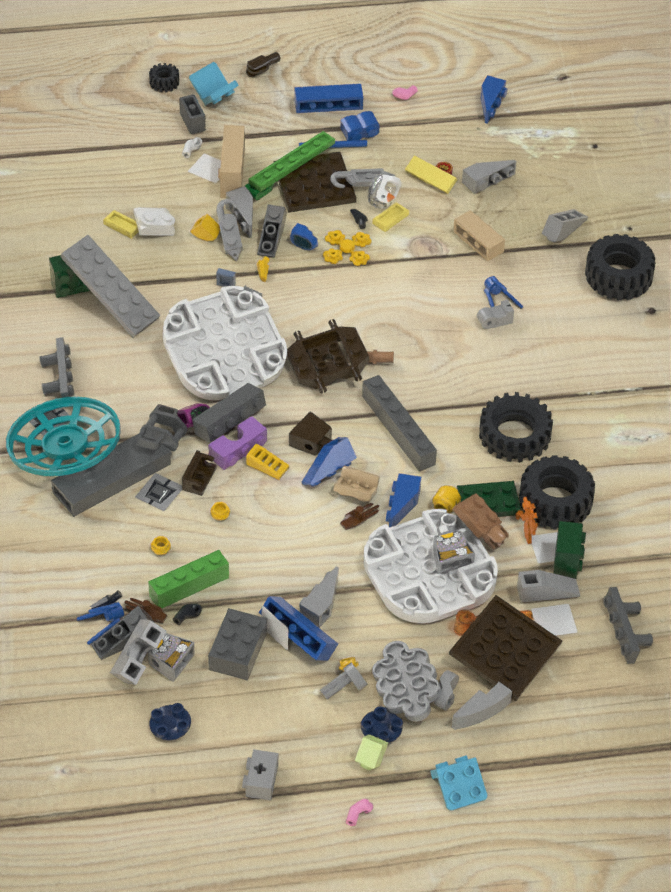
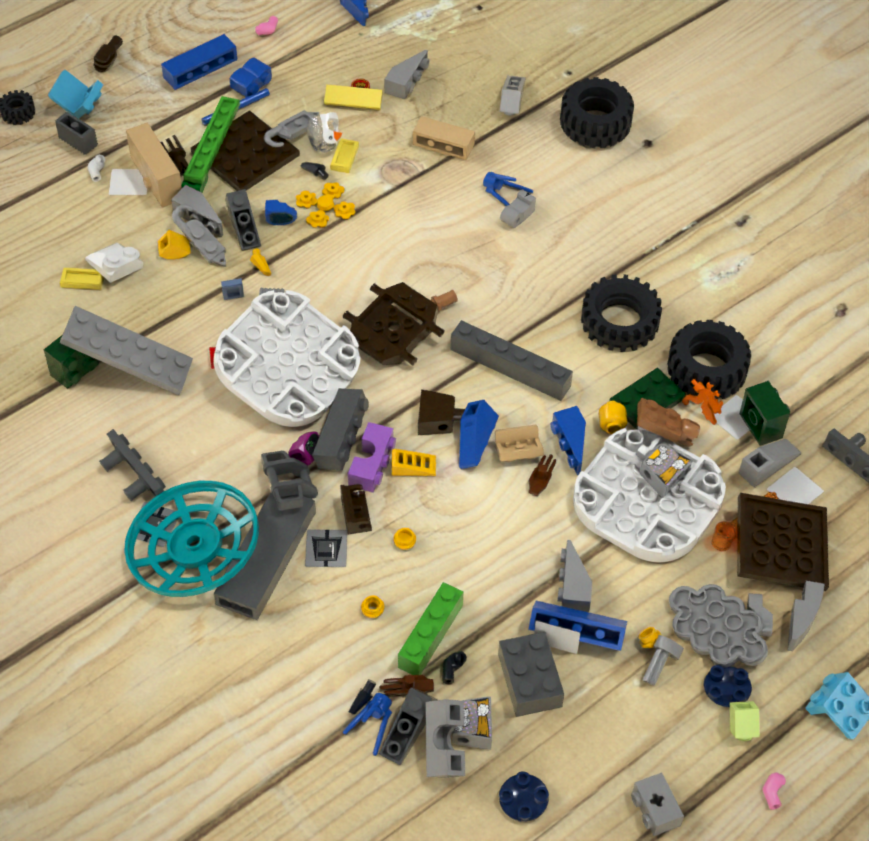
camera: 30 degrees left, 5 degrees up
(257, 161) = (176, 154): none -> dark brown arm

